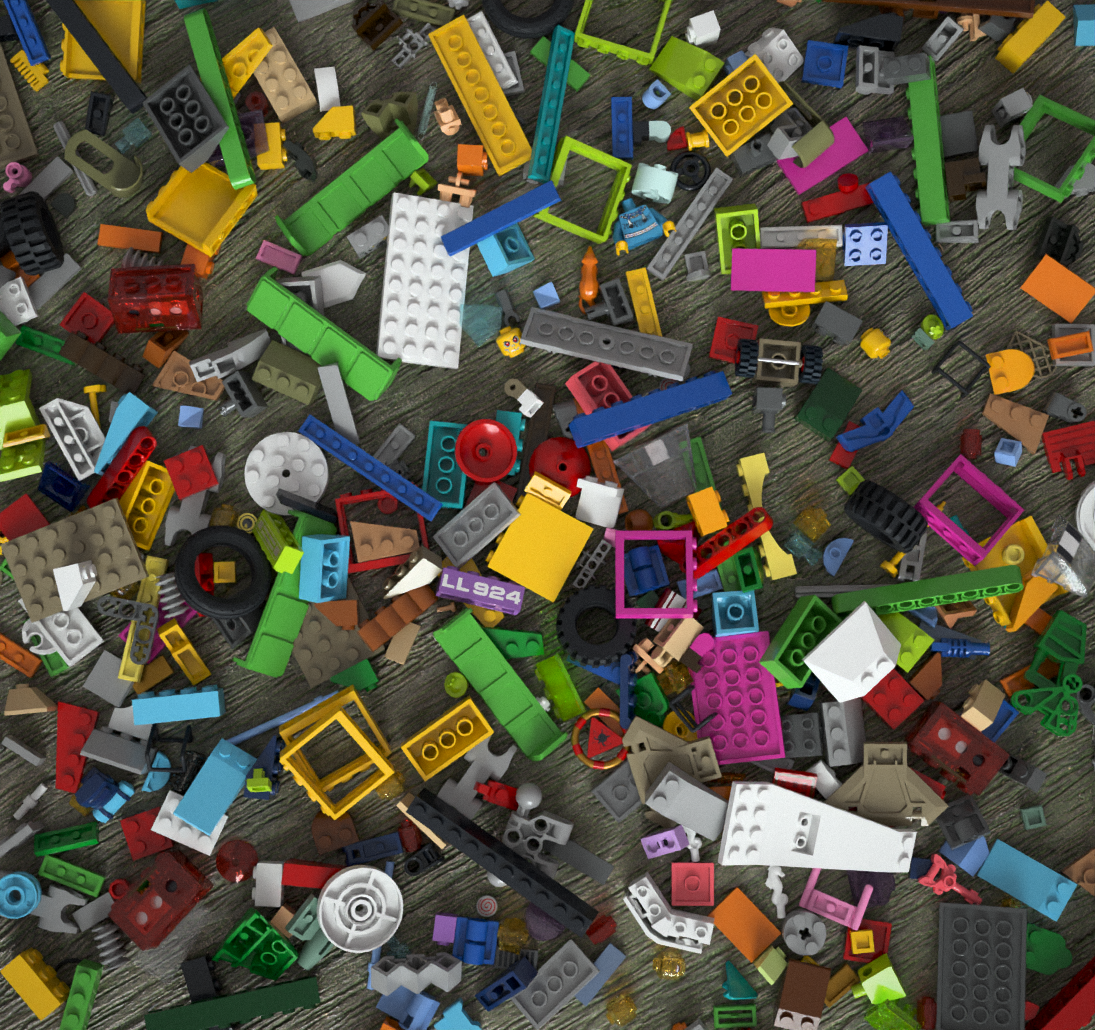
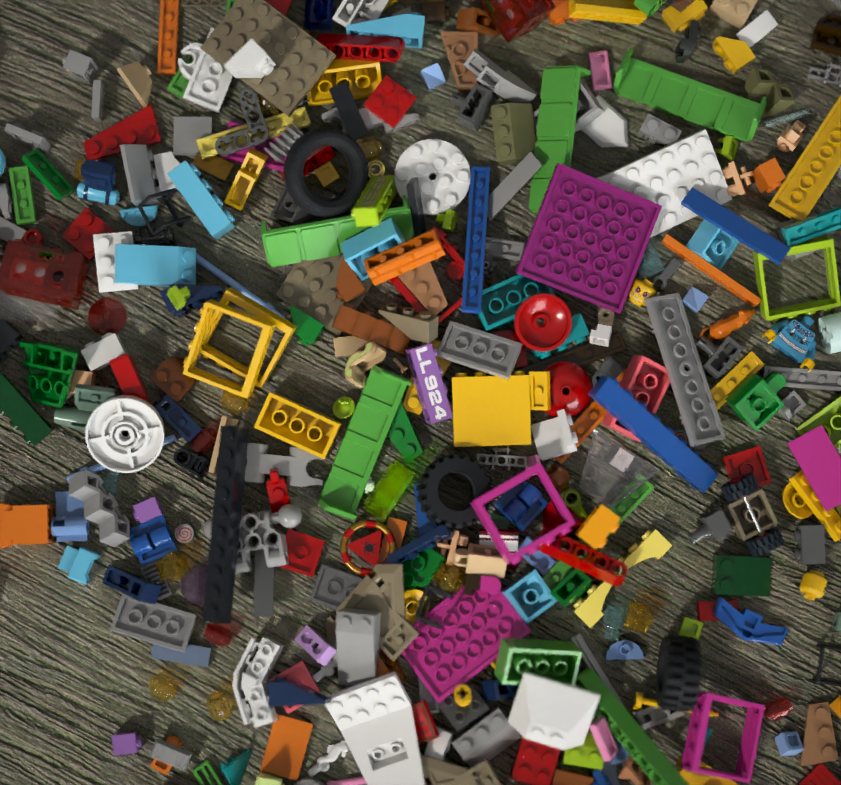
camera: 55 degrees right, 0 degrees up
(30, 801) = (61, 129): white bar -> none
(177, 516) = (348, 111): none -> black tile
(337, 482) = (448, 220): none -> lime tile
(347, 545) = (404, 257): none -> orange brick
(422, 642) = (362, 362): none -> tan animal
(431, 362) = (588, 238): none -> magenta plate
(528, 265) = (710, 271): none -> orange tile
(570, 802) = (303, 552): none -> red plate
(673, 294) = (756, 399): none -> green brick
(696, 890) = (292, 693): none -> dark blue slope
(796, 726) = (457, 693): none -> yellow bush
(906, 621) = (604, 738): none -> bright pink tile

